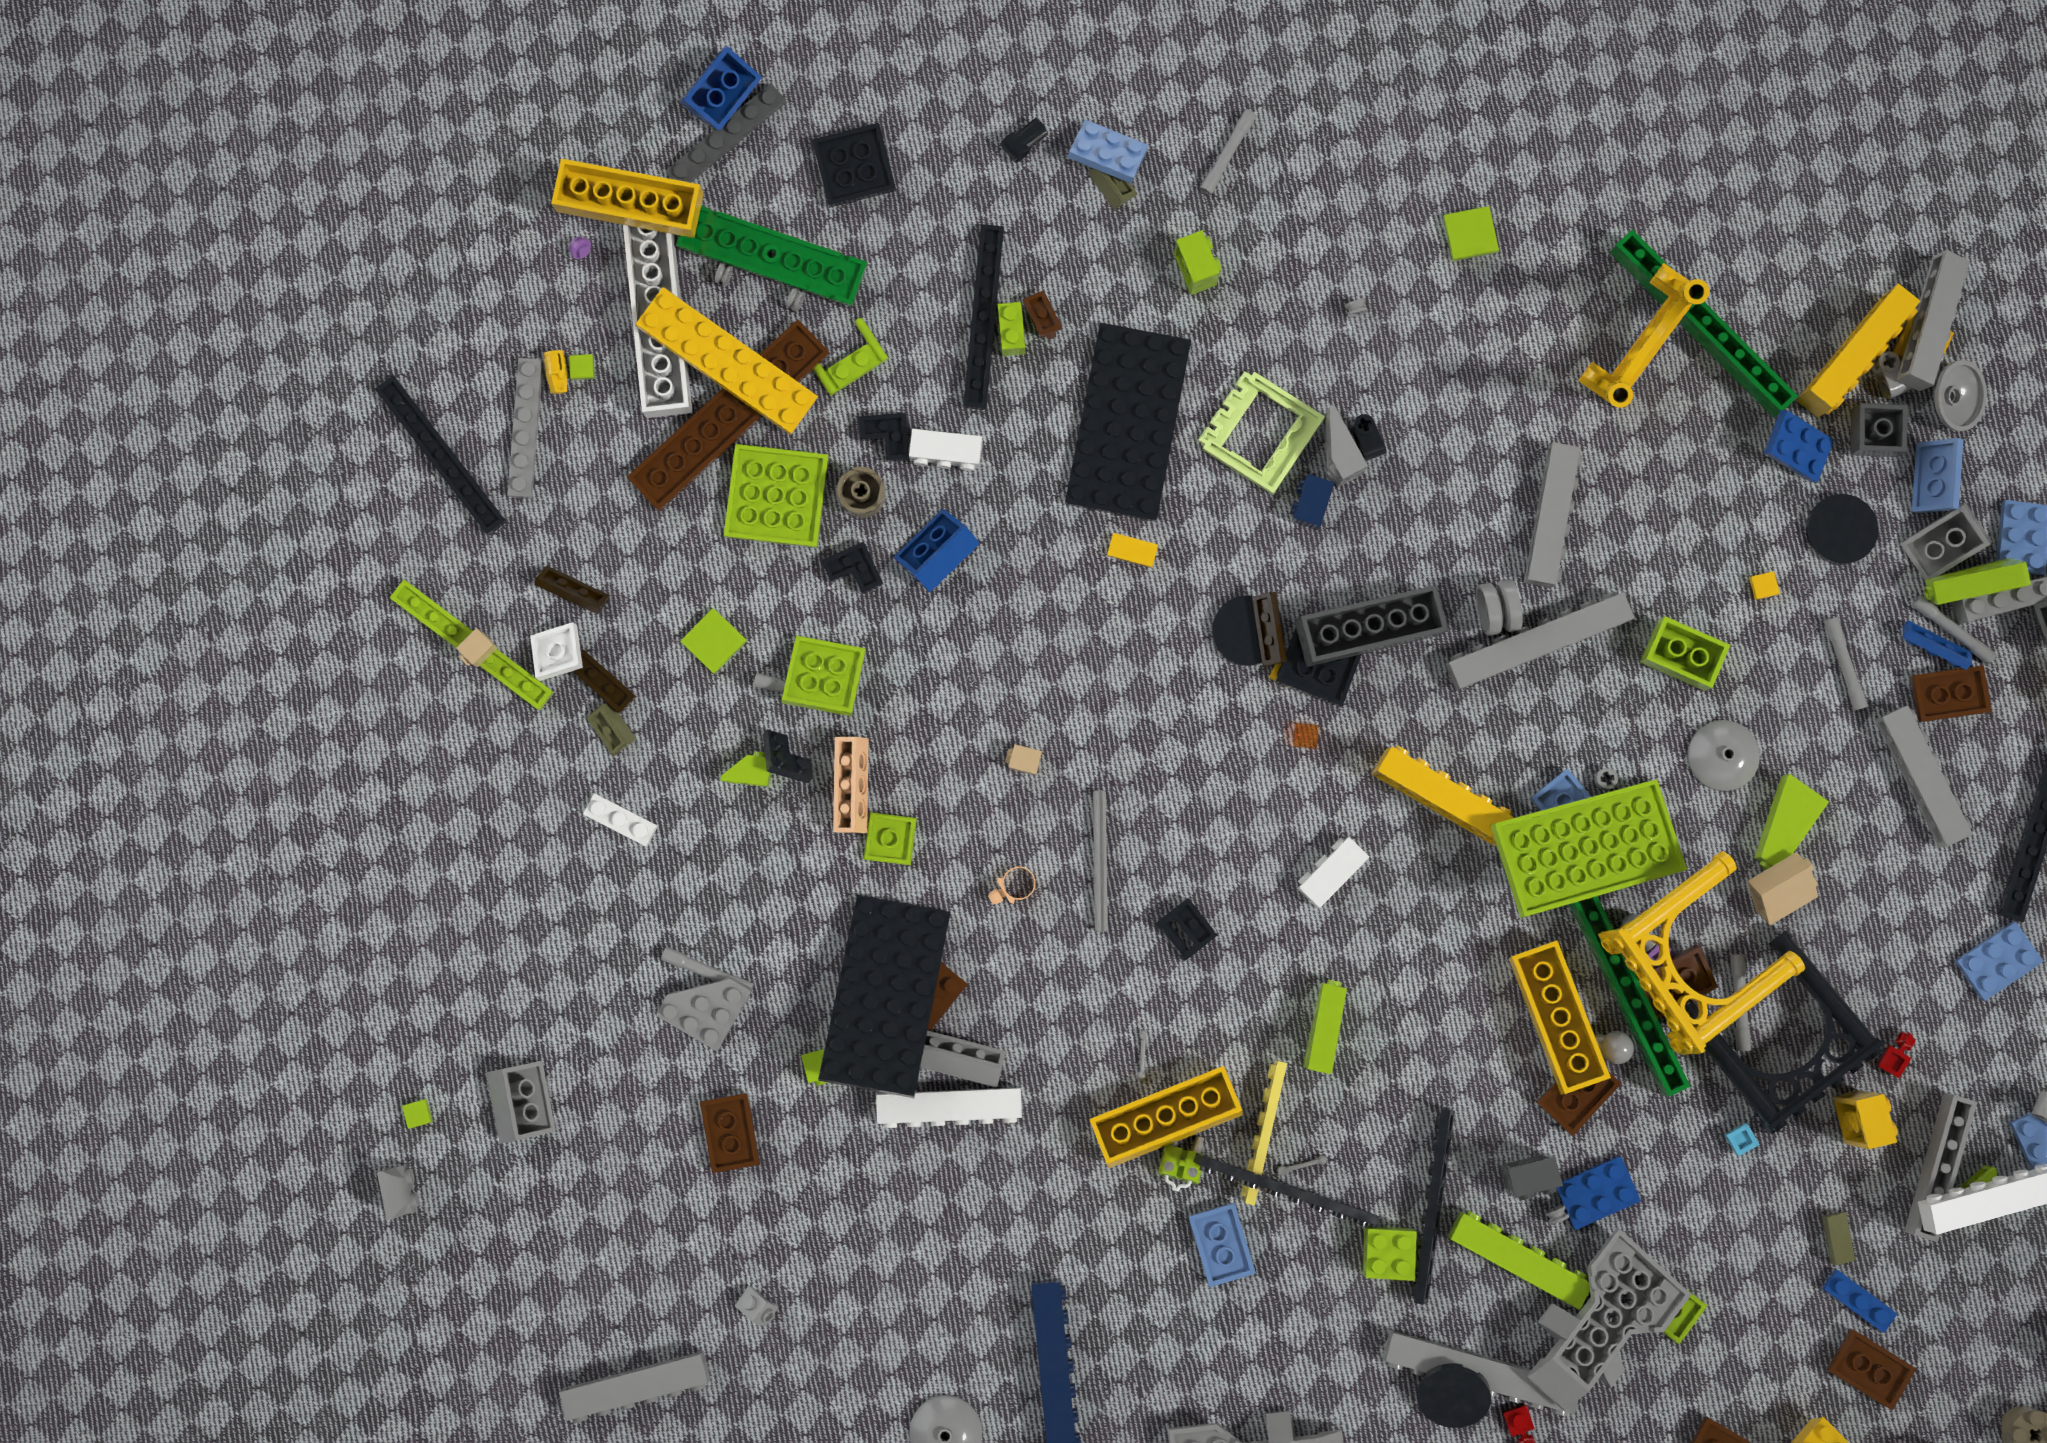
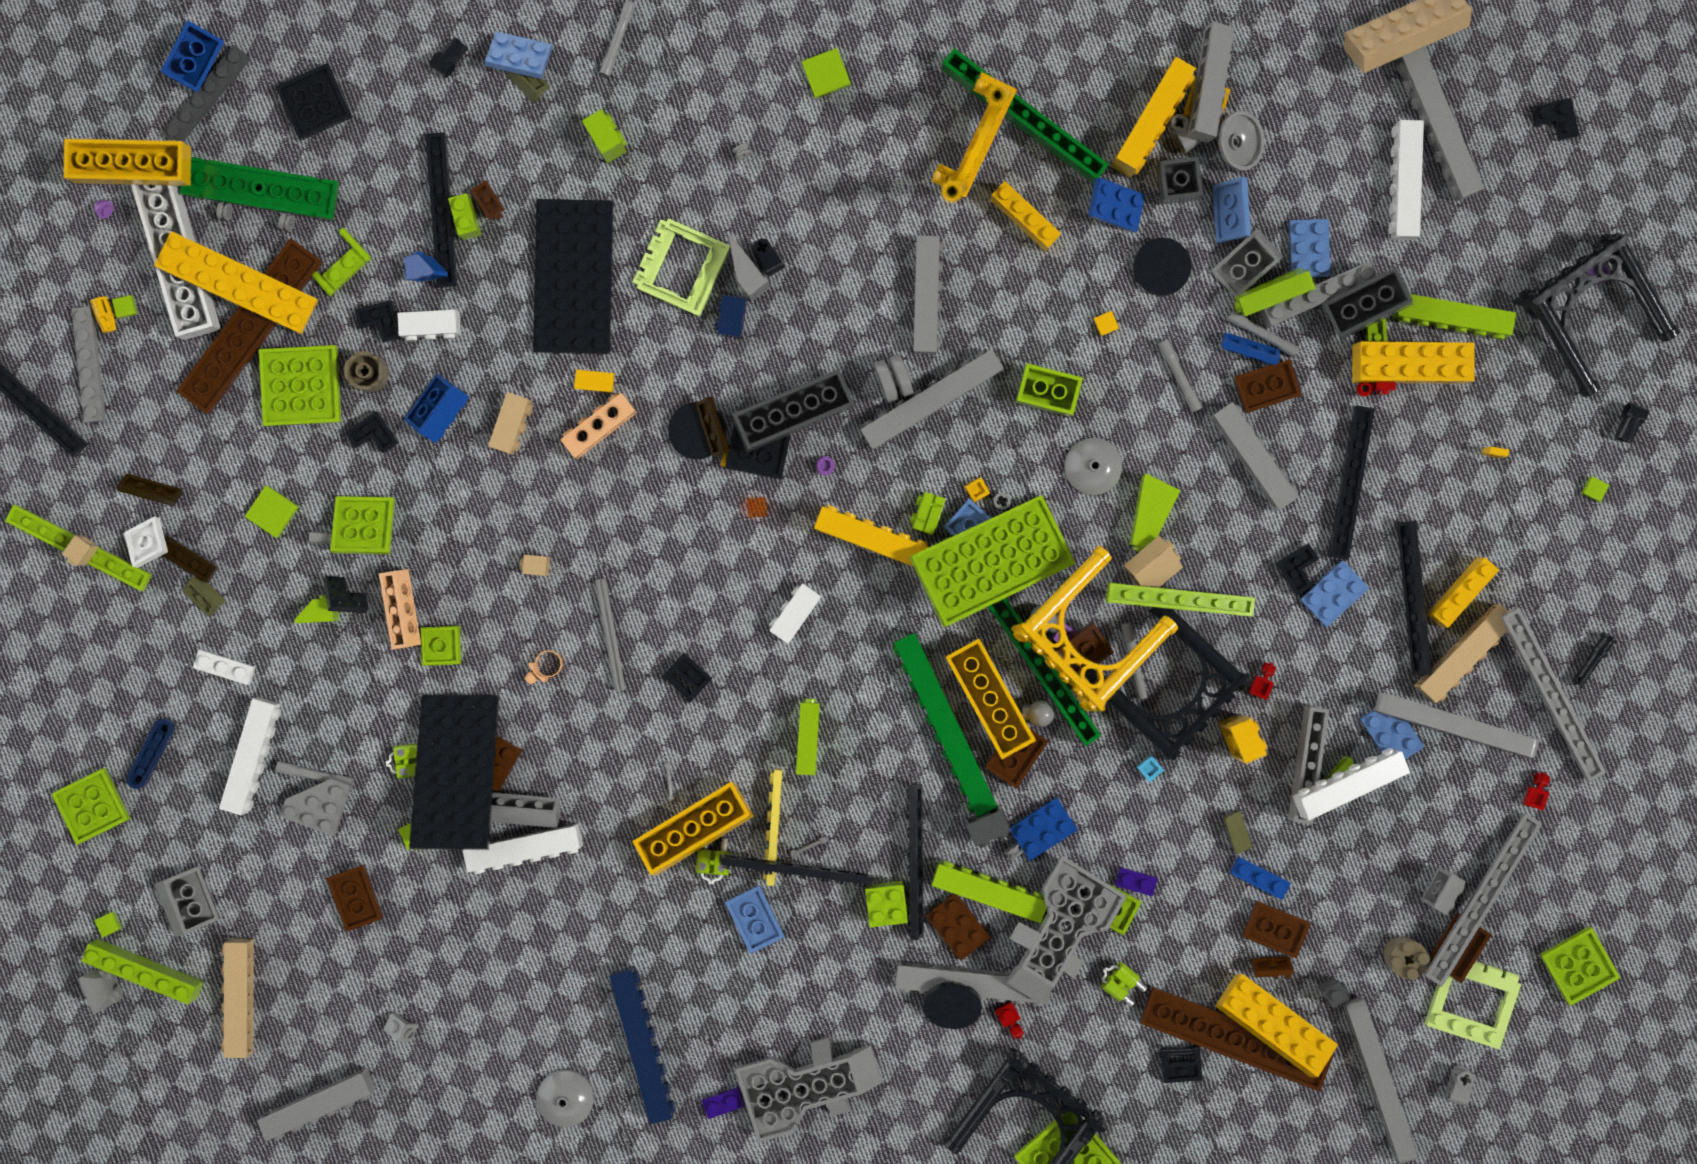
camera: 10 degrees left, 5 degrees up
(425, 963) = (91, 806): none -> lime plate
(450, 1179) = (142, 971): none -> lime brick
(511, 910) = (150, 753): none -> dark blue plate
(562, 1234) = (238, 998): none -> tan brick
(633, 934) = (250, 756): none -> white brick
(824, 973) = (405, 760): none -> lime piece
(951, 381) = (423, 268): none -> blue slope
(1024, 584) = (511, 423): none -> tan brick
(1100, 626) = (579, 448): none -> light nougat brick
(1396, 699) = (825, 465): none -> medium lavender plate
(1472, 1297) = (957, 926): none -> reddish brown plate
(1496, 1042) = (947, 728): none -> green brick
(1514, 778) = (928, 513): none -> lime brick
(1577, 759) = (977, 489): none -> yellow tile
(1666, 1403) = (1120, 982): none -> lime piece
(1686, 441) = (1025, 216): none -> yellow brick
(1703, 1278) = (1136, 881): none -> dark purple plate
(1810, 935) = (1180, 599): none -> lime plate
(1860, 1416) = (1272, 967): none -> reddish brown plate
(1952, 919) = (1292, 568): none -> black plate

